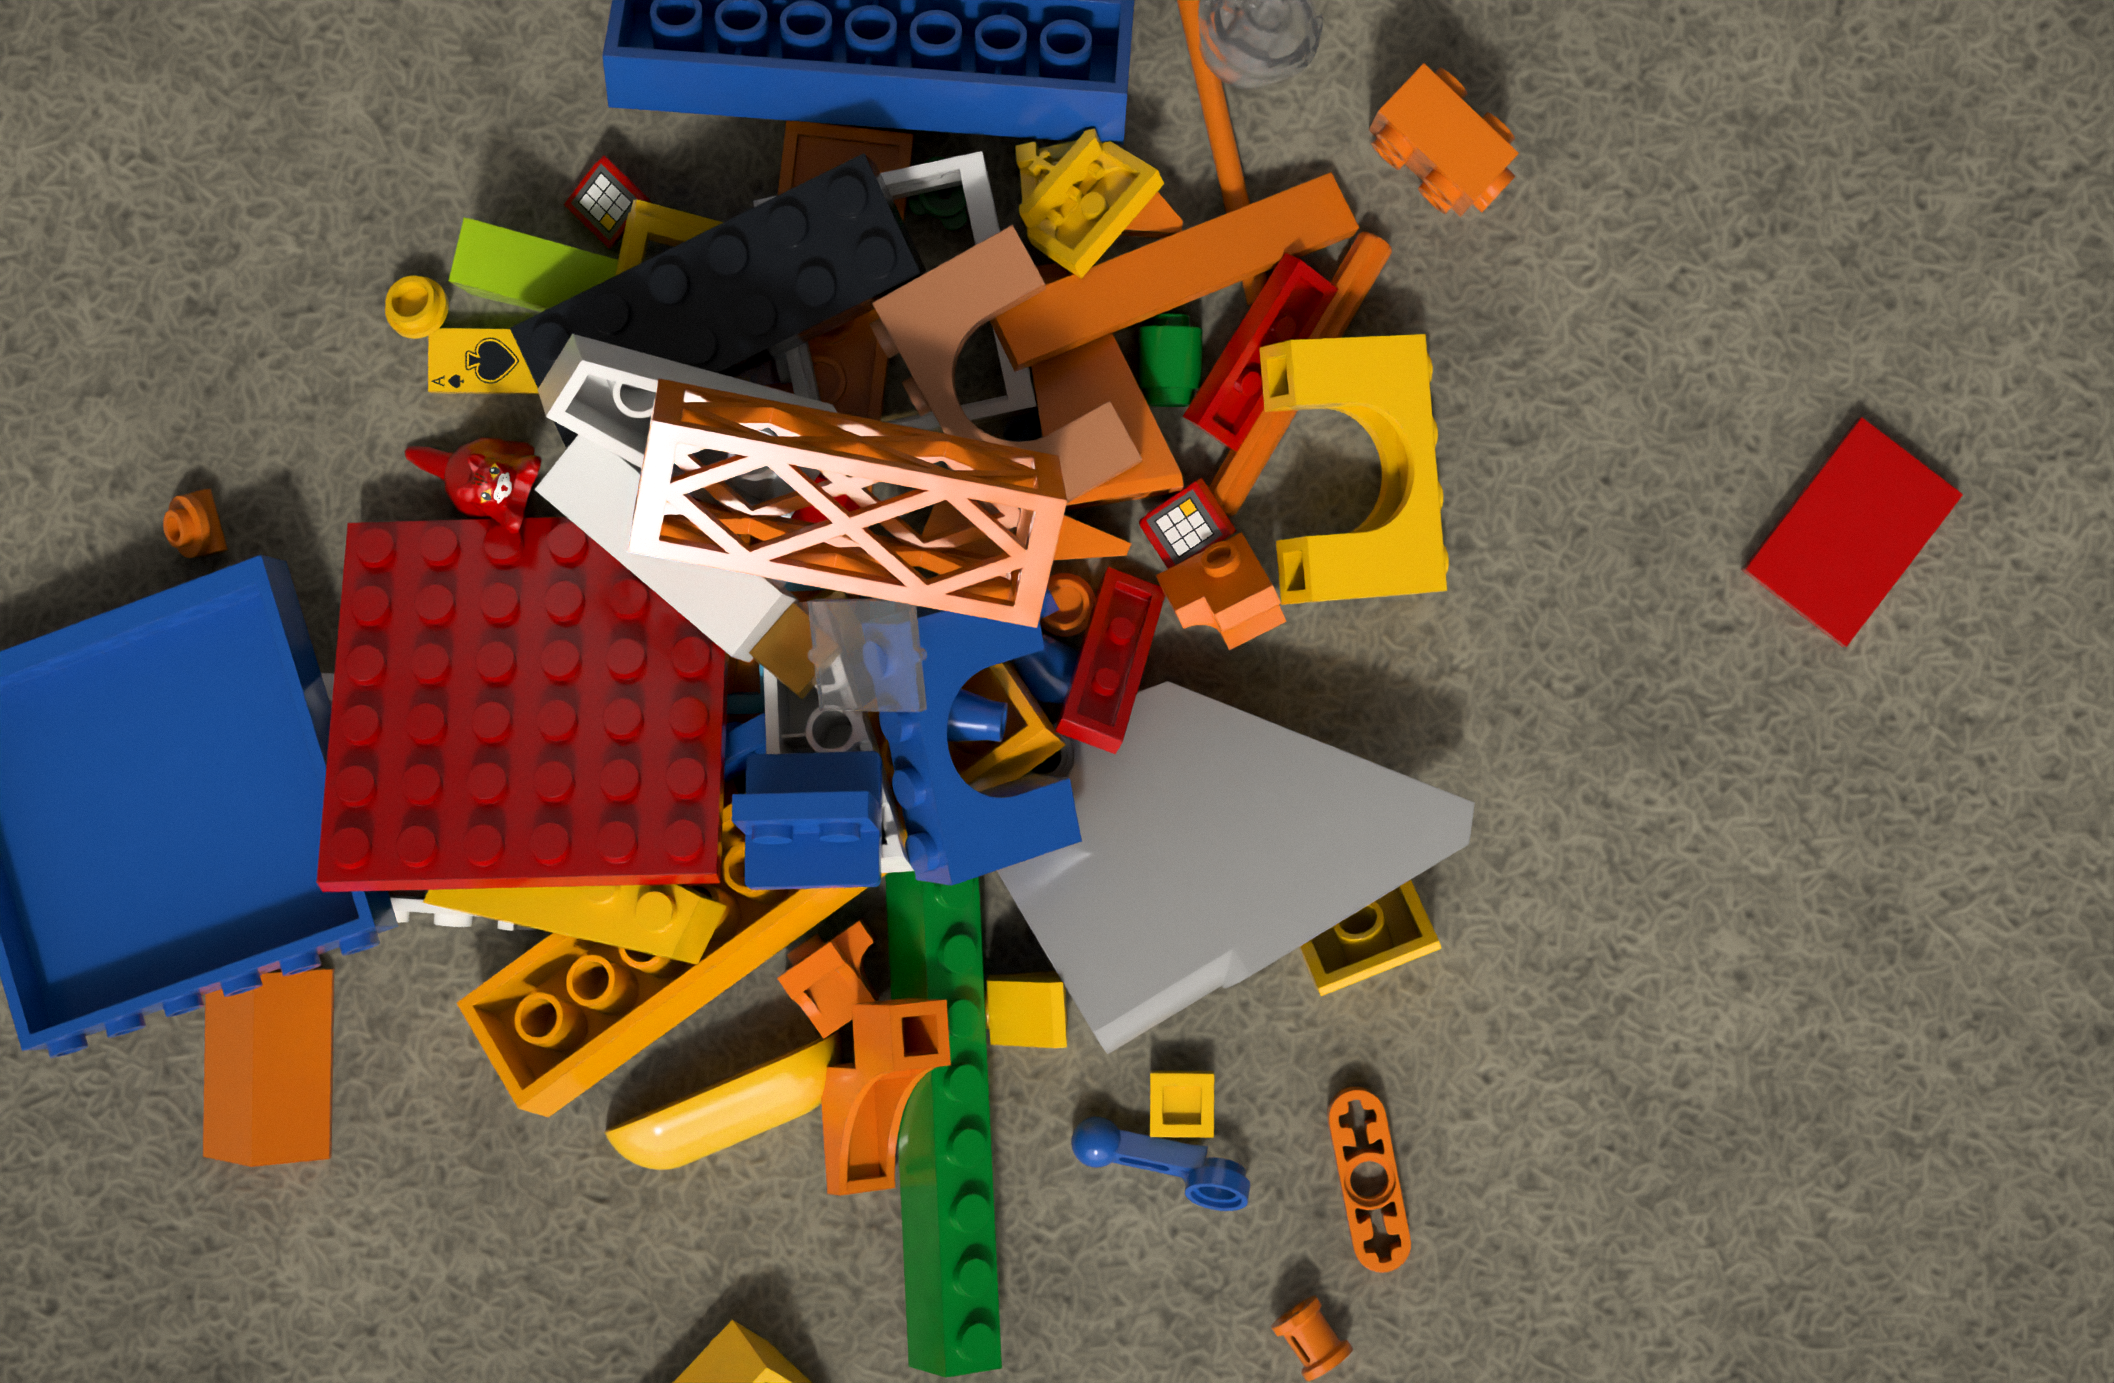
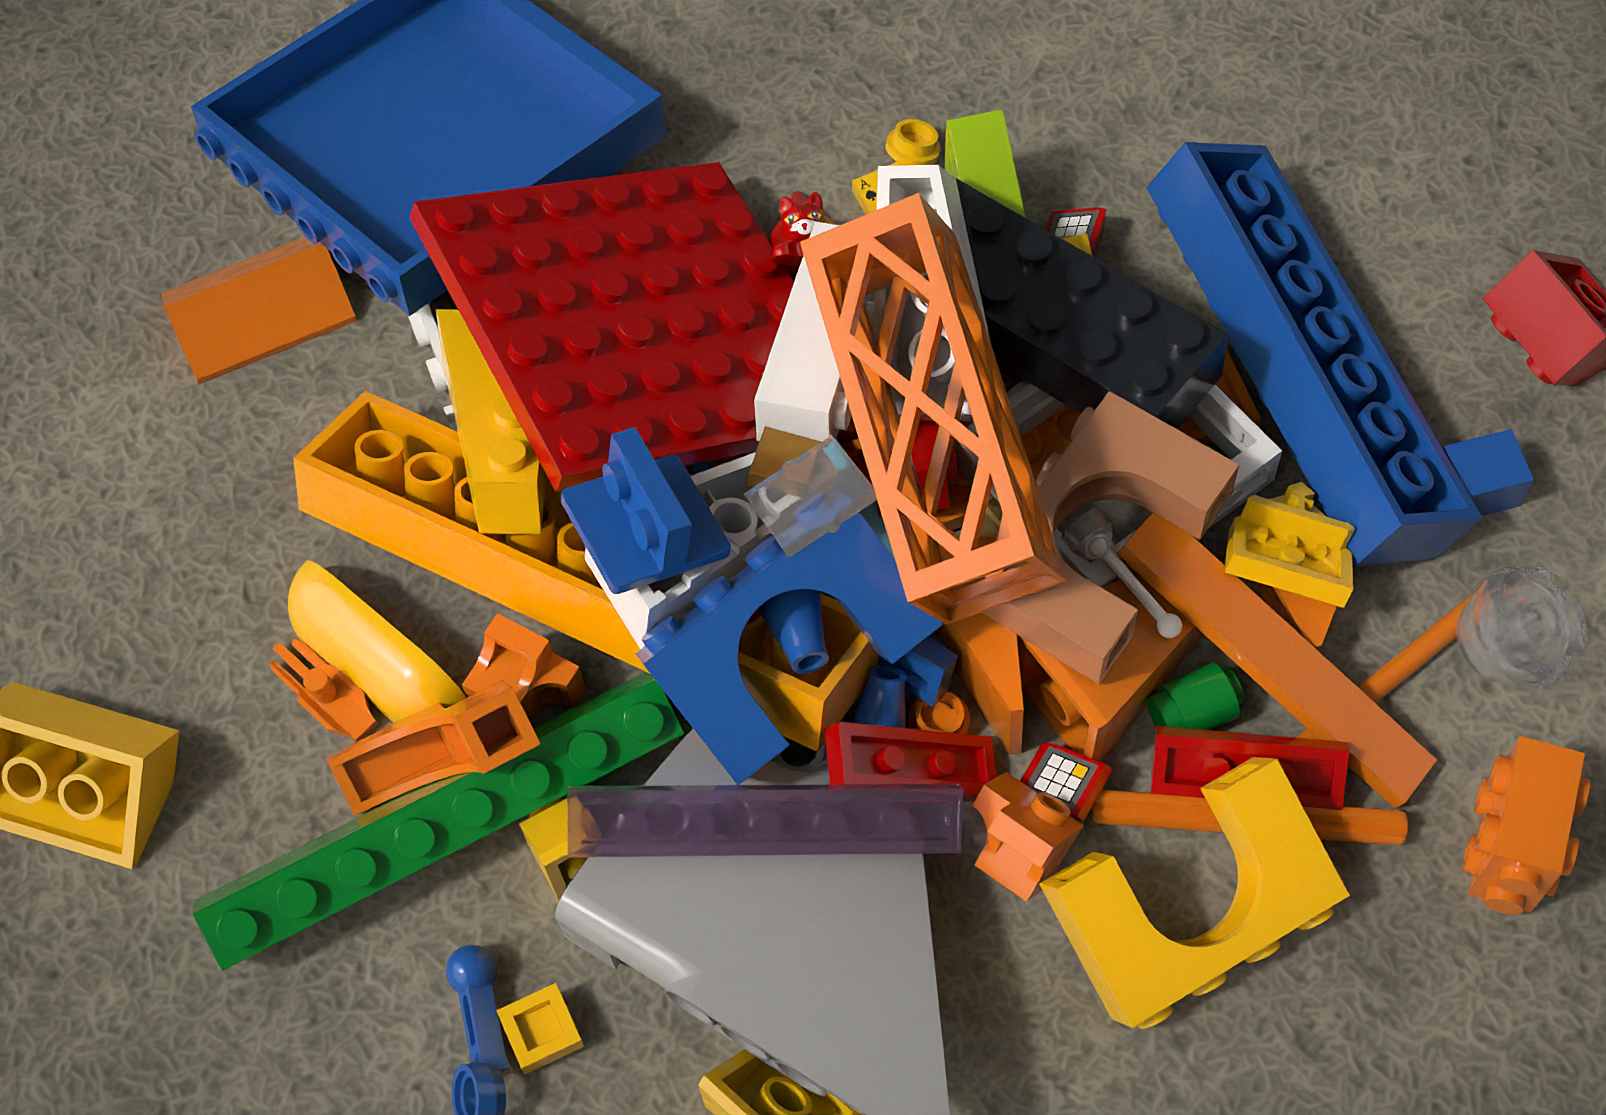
camera: 70 degrees right, 25 degrees down
(194, 525) = (667, 75): orange plate -> none
(752, 1163) = (328, 693): none -> orange piece
(991, 385) = (1093, 538): none -> hinge
(1123, 831) = (763, 820): none -> clear purple plate

